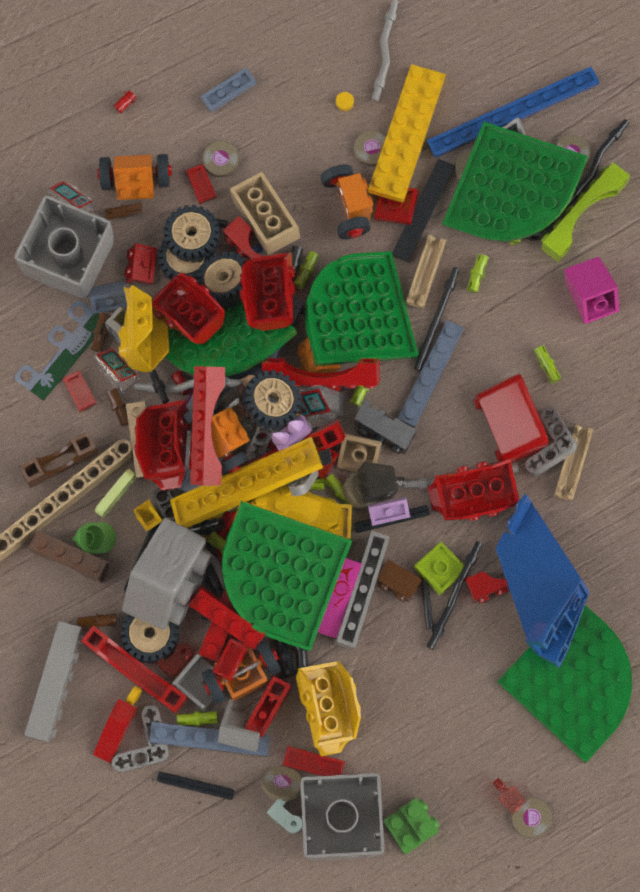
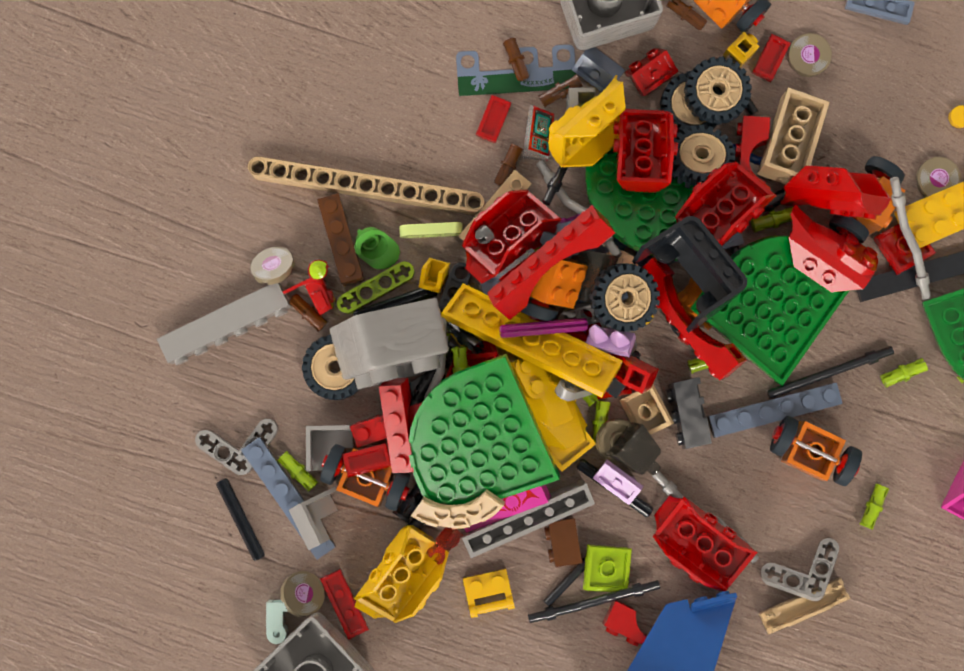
camera: 45 degrees right, 10 degrees up
(45, 616) = (272, 265): none -> tile
(54, 343) = (516, 59): none -> reddish brown axle
(73, 453) = (424, 160): reddish brown arch -> none
(85, 598) = (316, 286): none -> red piece
(115, 730) = (228, 410): red slope -> none
(121, 562) = (378, 291): none -> lime beam
(134, 670) = (292, 382): red arch -> none
(134, 695) = (270, 401): yellow tile -> none
(151, 456) = (484, 234): none -> dark grey hinge
(177, 188) = (749, 41): none -> yellow window
(178, 378) = (577, 195): red pin -> none
(181, 656) = (330, 411): clear red leg -> none
(245, 469) = (543, 327): none -> magenta axle
(269, 706) = (356, 526): red slope -> none
(291, 330) = (703, 260): none -> black windscreen
(320, 404) = (662, 340): slope -> none
(320, 629) = (459, 515): none -> tan tile
(321, 214) = (838, 191): none -> red slope
(329, 654) = (446, 541): none -> clear red plate
(360, 255) = (828, 257): none -> red slope
(383, 657) = (487, 585): none -> yellow plate
(425, 210) = (899, 200): none -> light grey bar
(425, 272) = (865, 326): tan piece -> none
(477, 369) = (815, 451): none -> brick
(512, 419) = (796, 520): windscreen -> none

